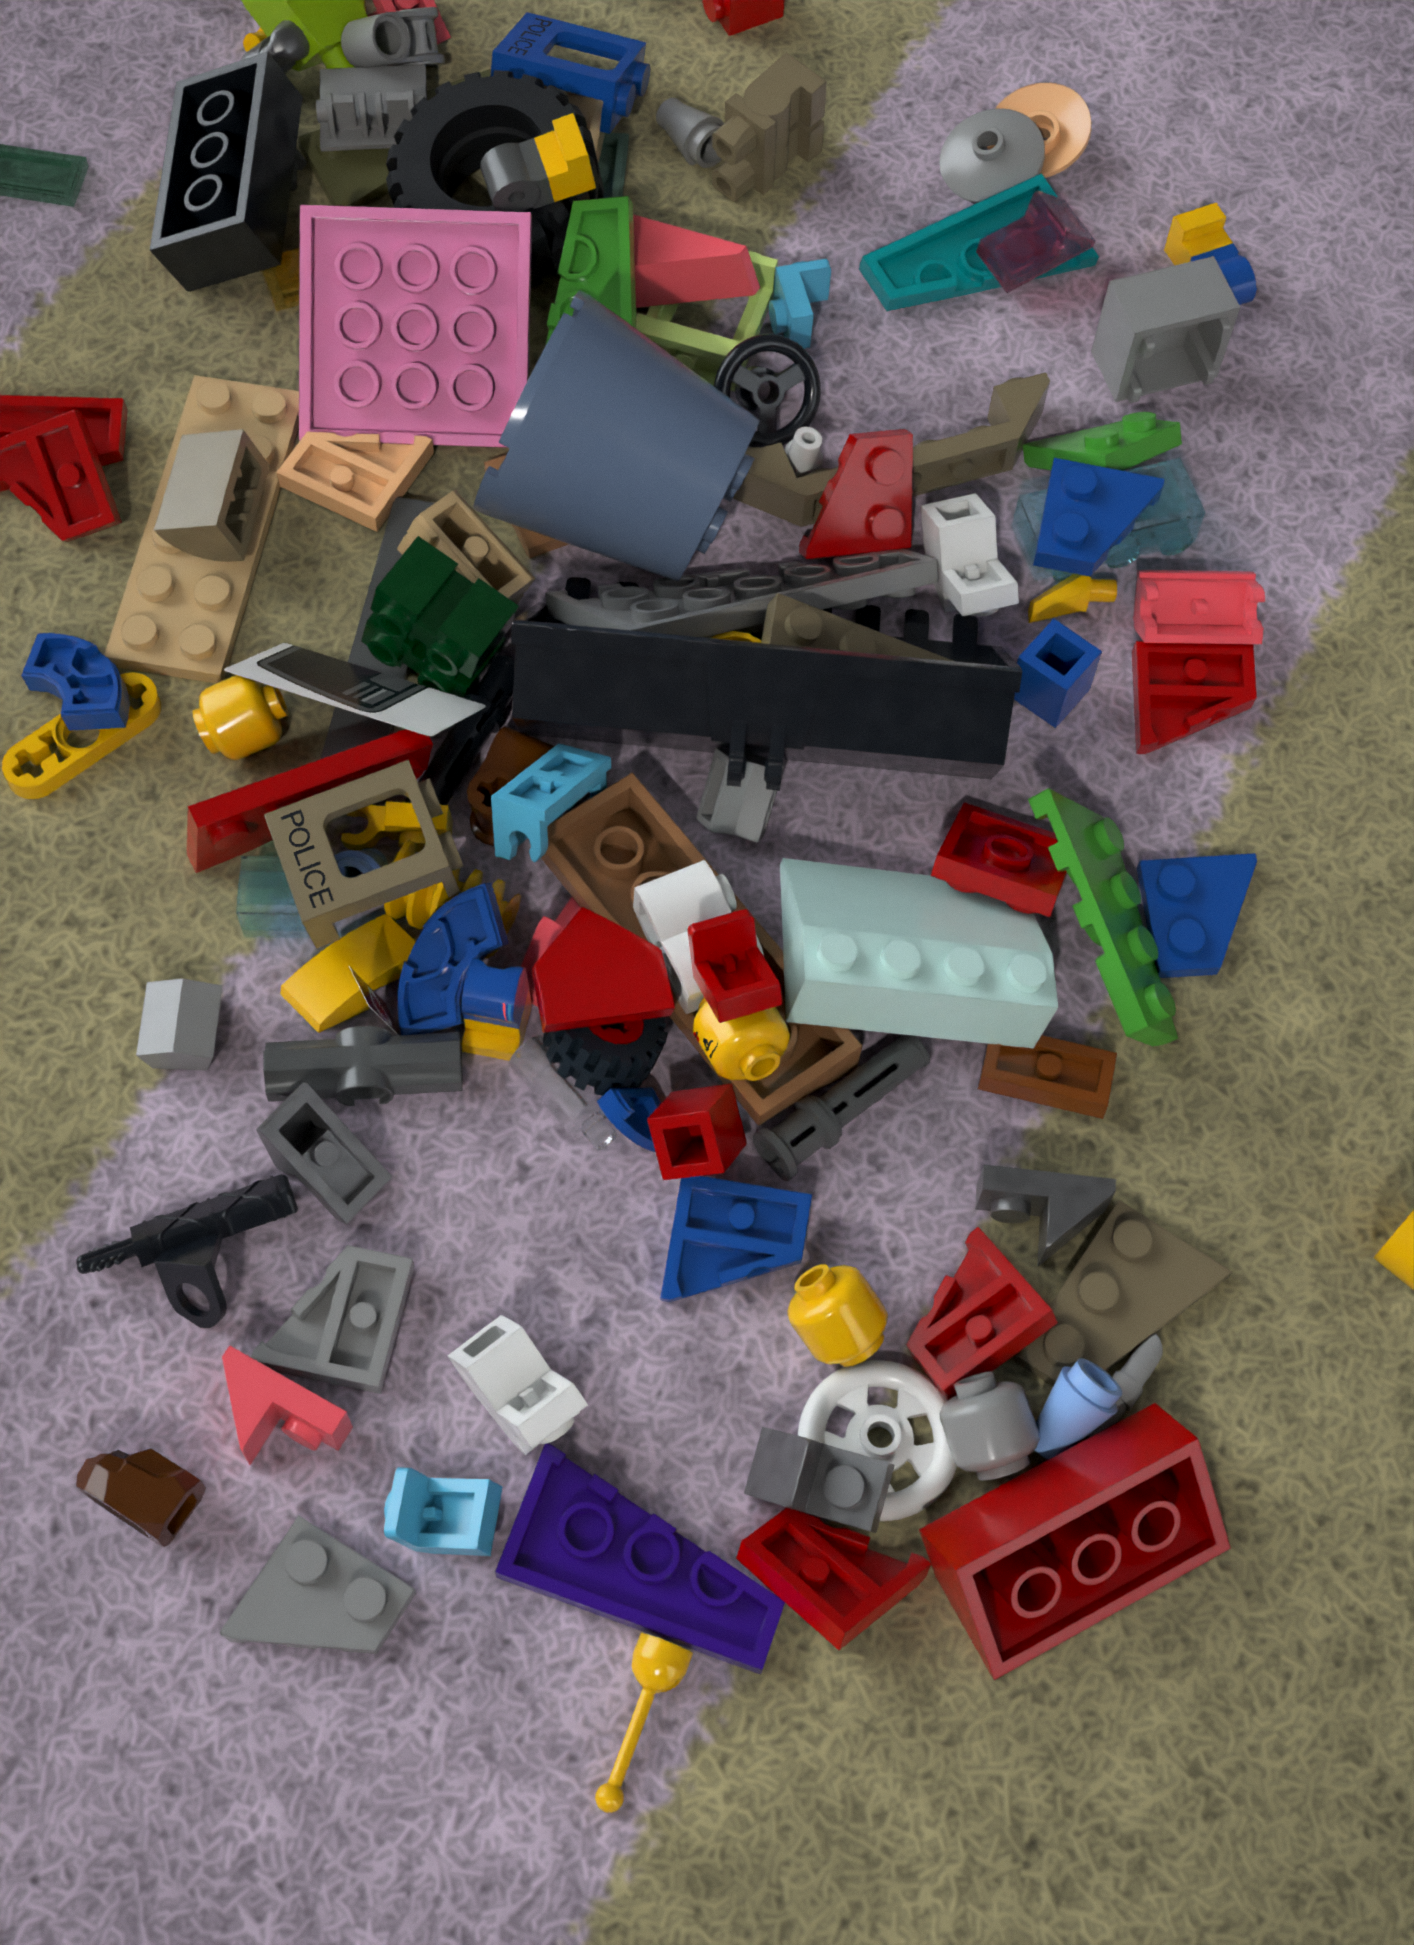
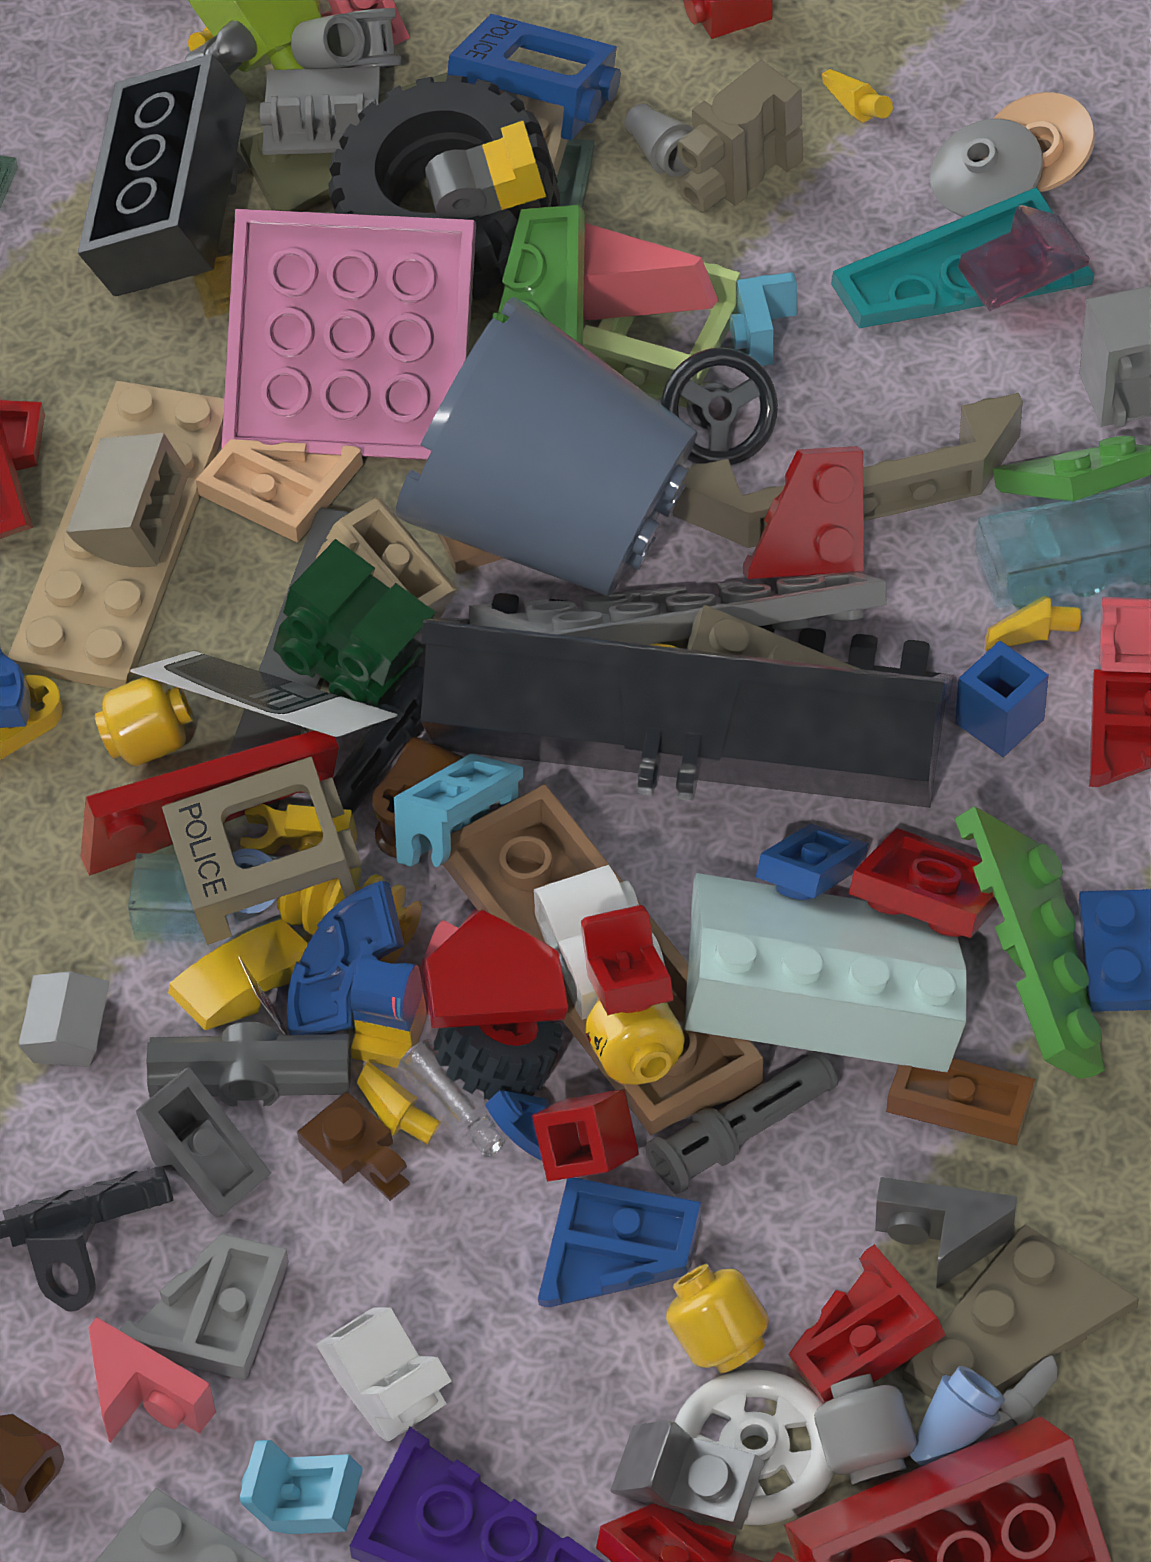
camera: 10 degrees right, 10 degrees down
(470, 1139) = (354, 1141): none -> reddish brown plate
(508, 1099) = (396, 1105): none -> yellow bar
(734, 809) = (657, 822): light grey piece -> none
(805, 451) = (753, 468): white arm -> none
(868, 89) = (857, 96): none -> yellow bar
(890, 842) = (810, 861): none -> blue plate
(964, 542) = (917, 576): white brick -> none
(1089, 513) = (1049, 537): blue wing -> none

